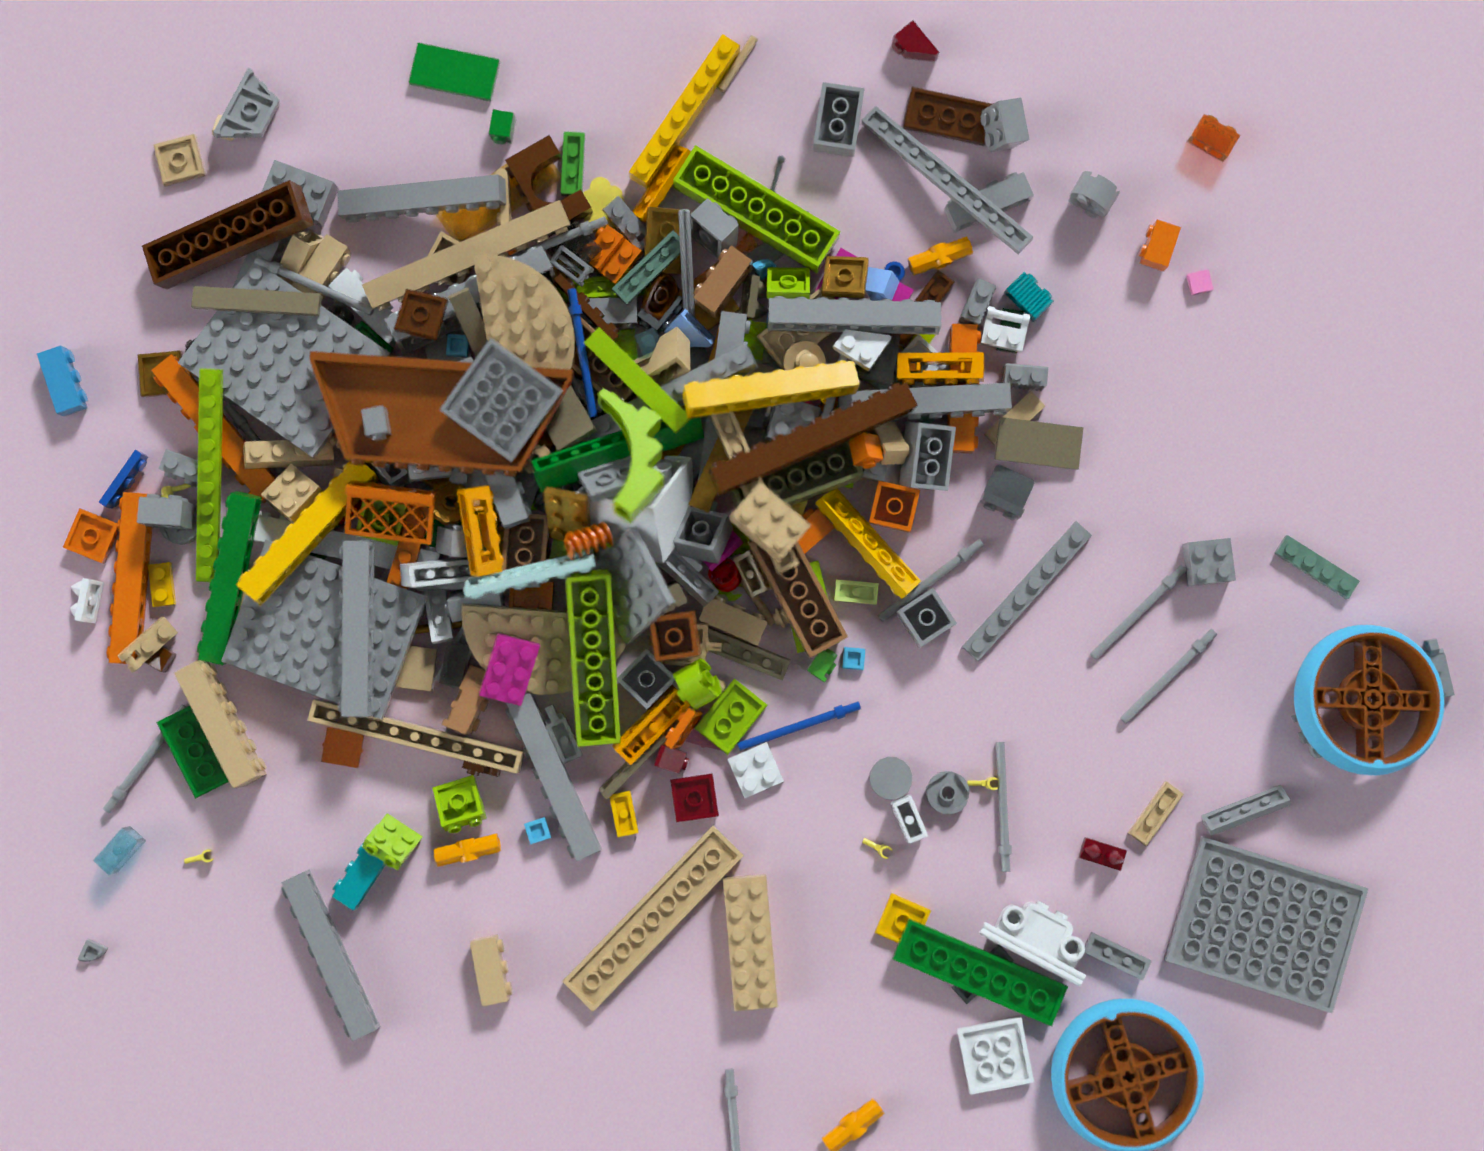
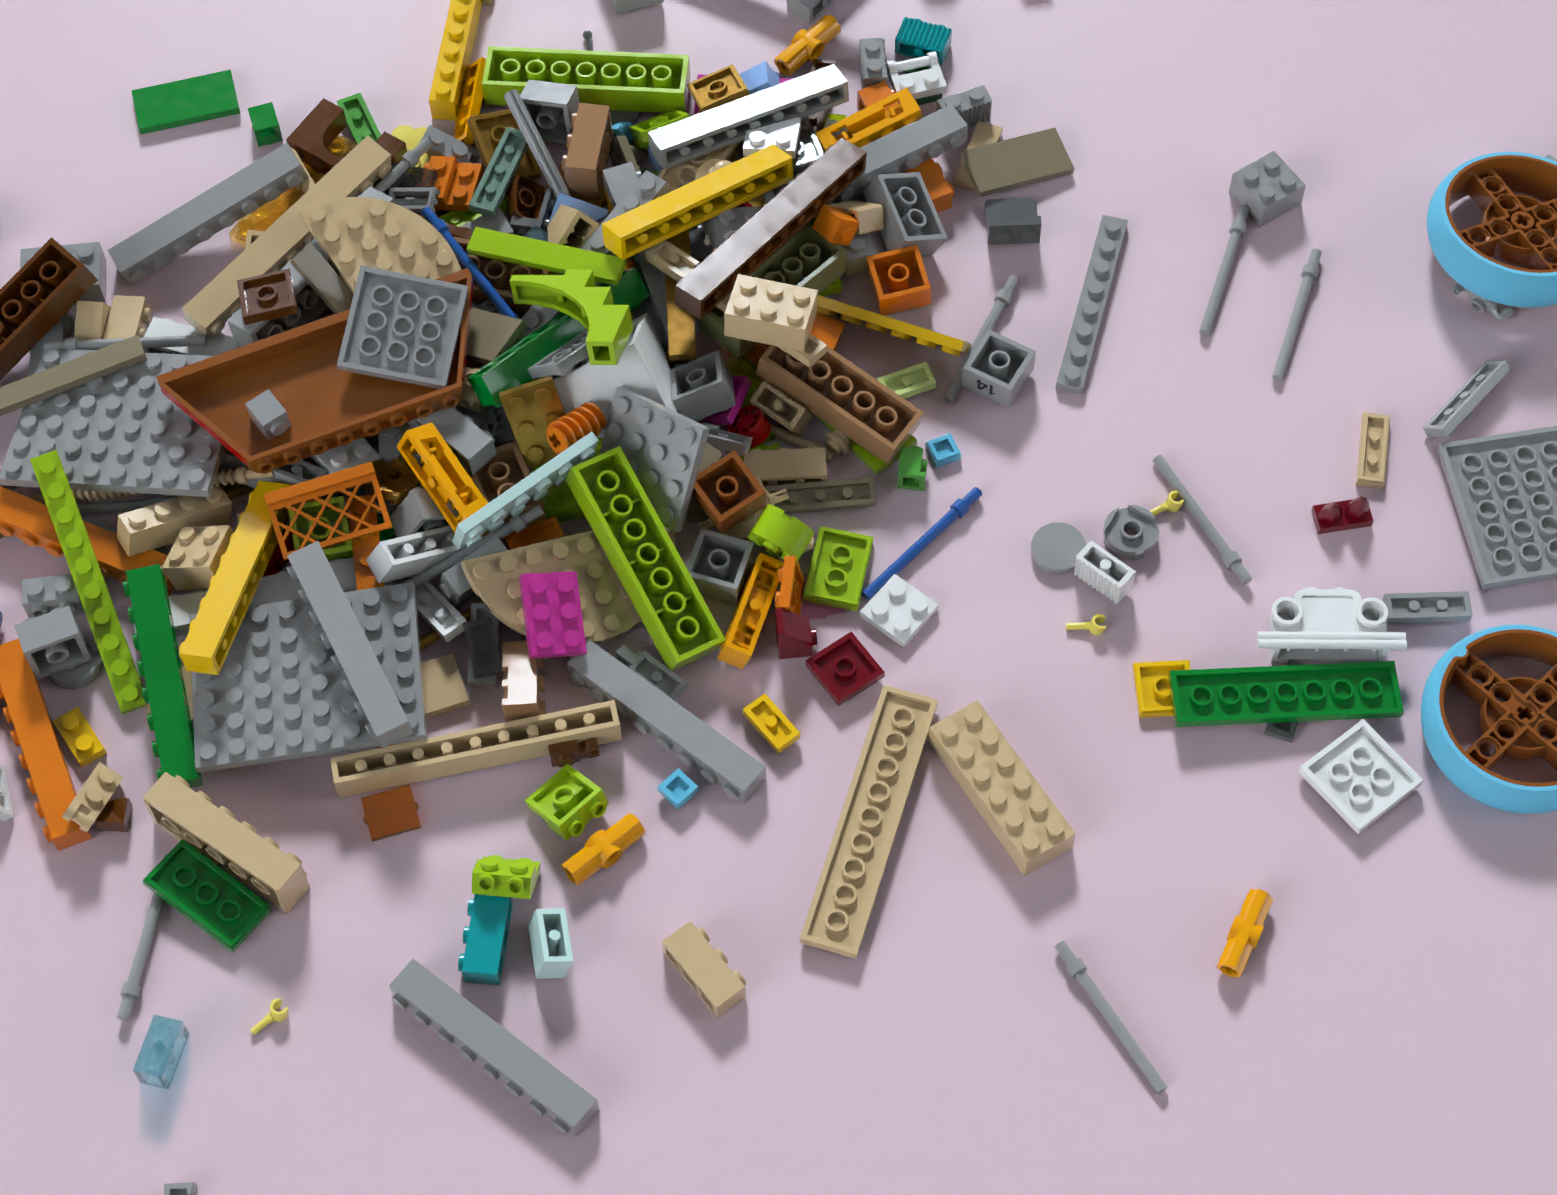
camera: 25 degrees left, 25 degrees down
(398, 904) = (550, 943): none -> light aqua brick
(627, 770) = (750, 670): dark tan tile -> none
(1317, 567) = (1381, 149): sand green plate -> none

